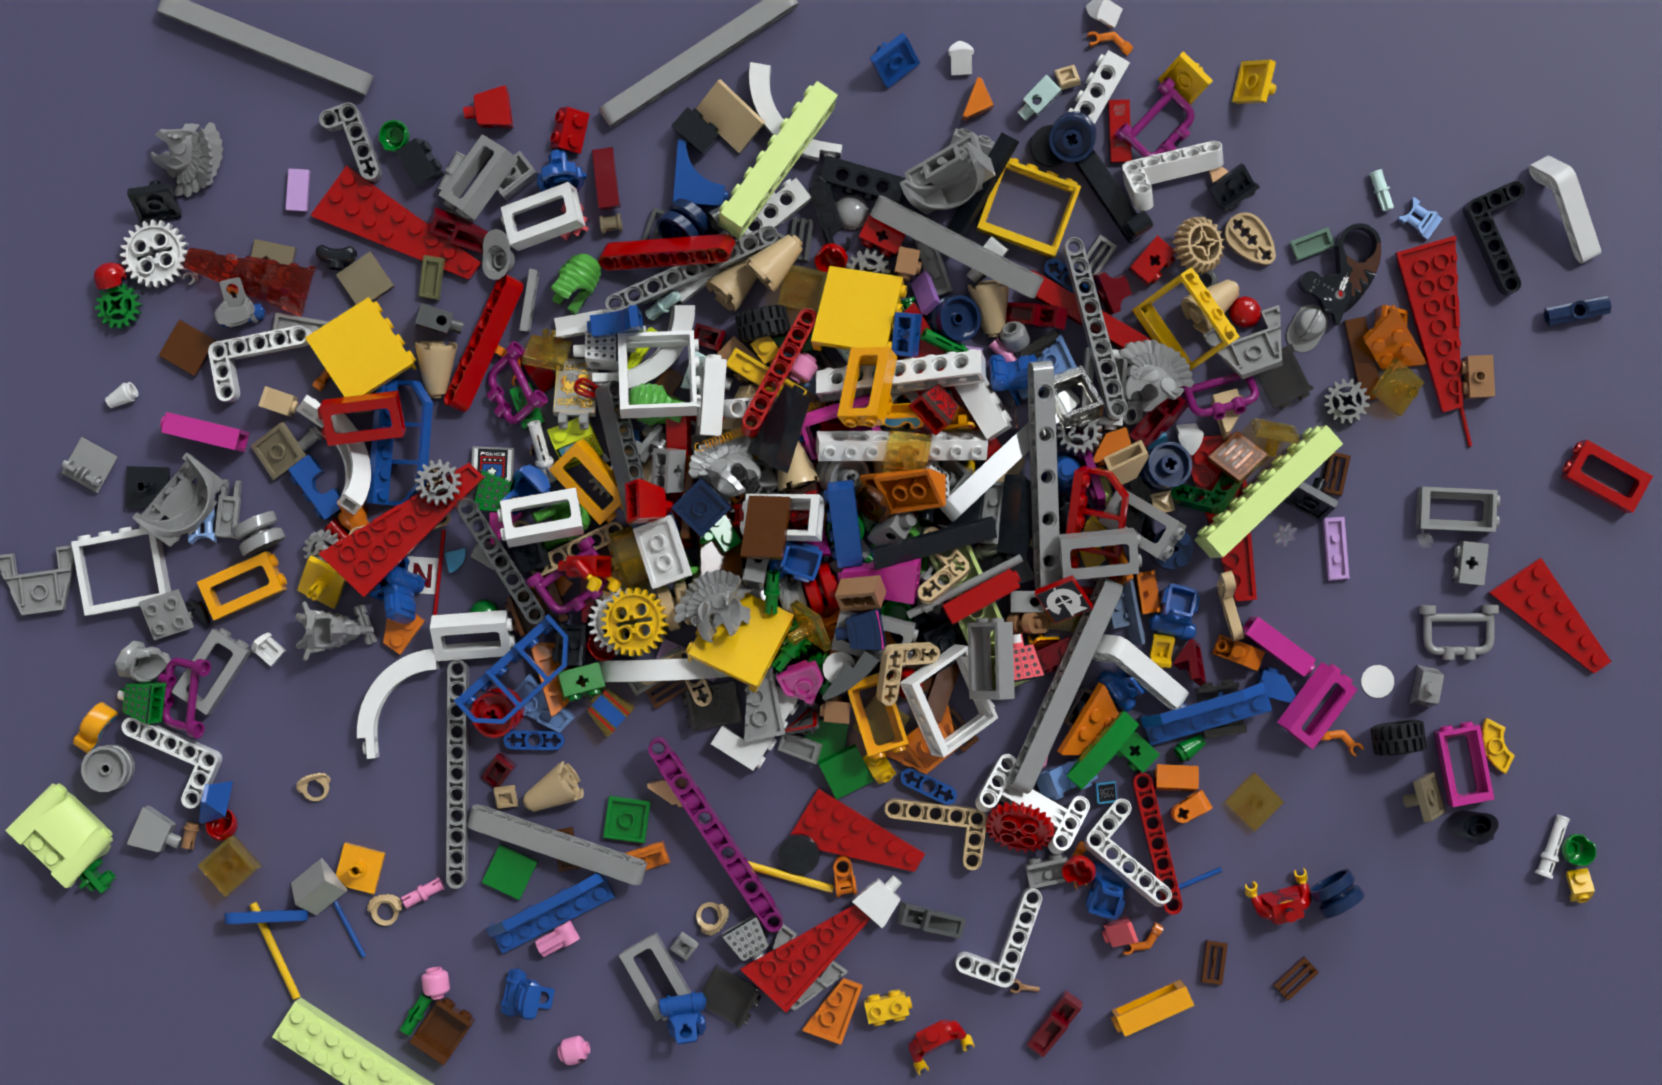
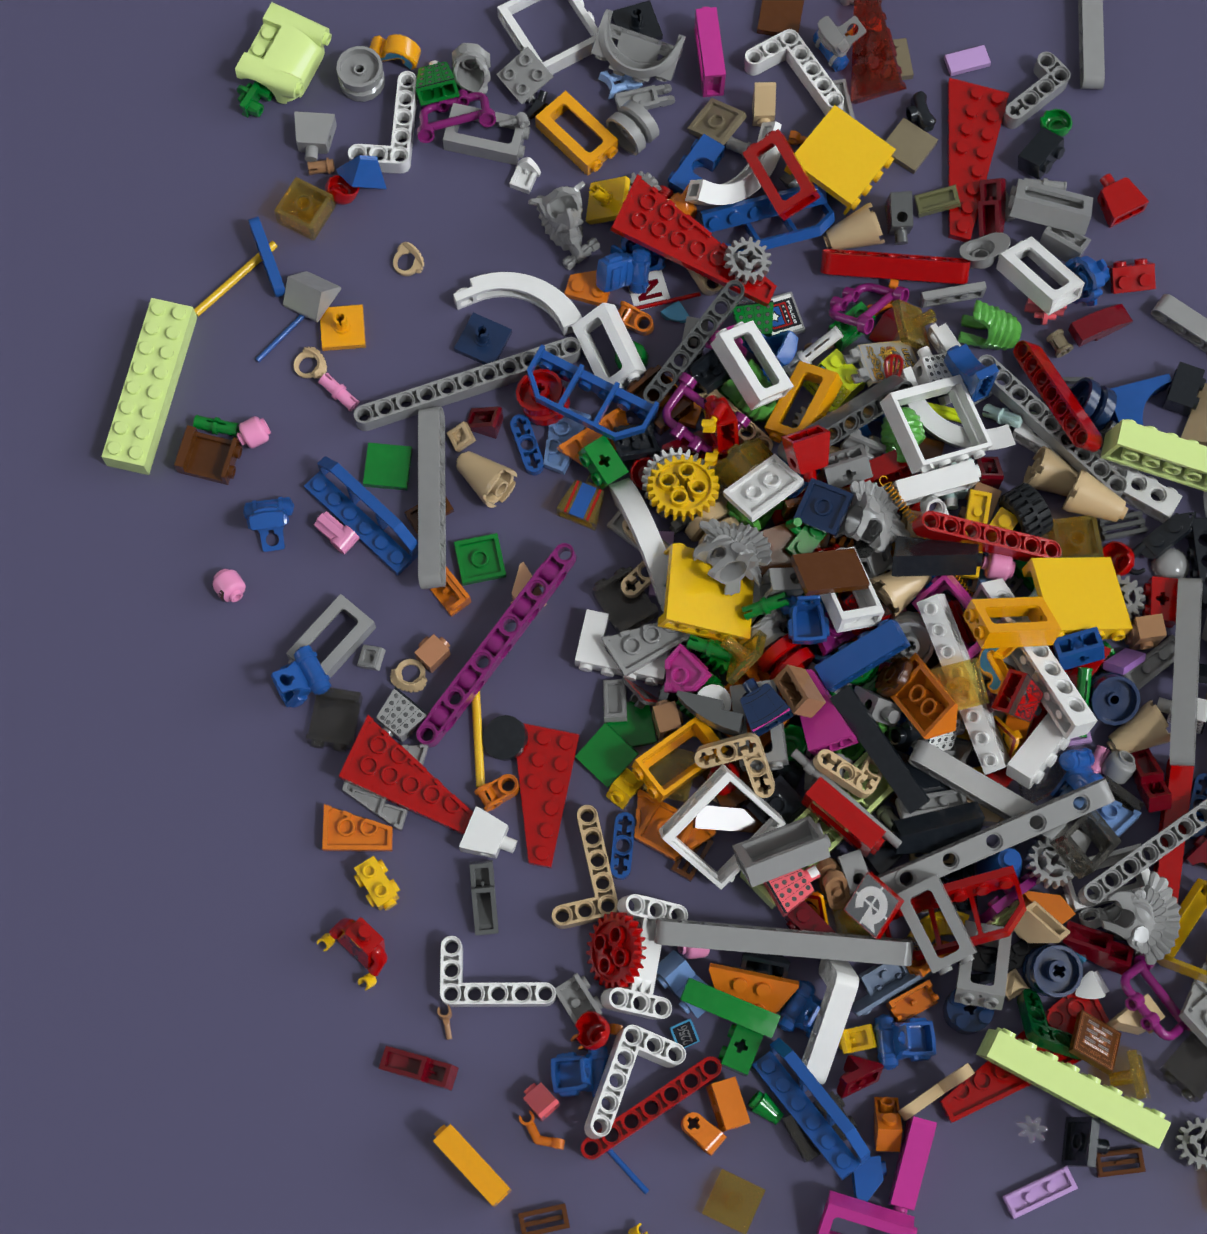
camera: 65 degrees right, 15 degrees down
(213, 634) = (521, 118): none -> light grey hand
(418, 744) = (482, 339): none -> dark blue tile
(447, 601) = (632, 316): none -> orange piece
(652, 698) = (610, 542): reddish brown tile -> none
(699, 891) = (432, 652): none -> nougat brick

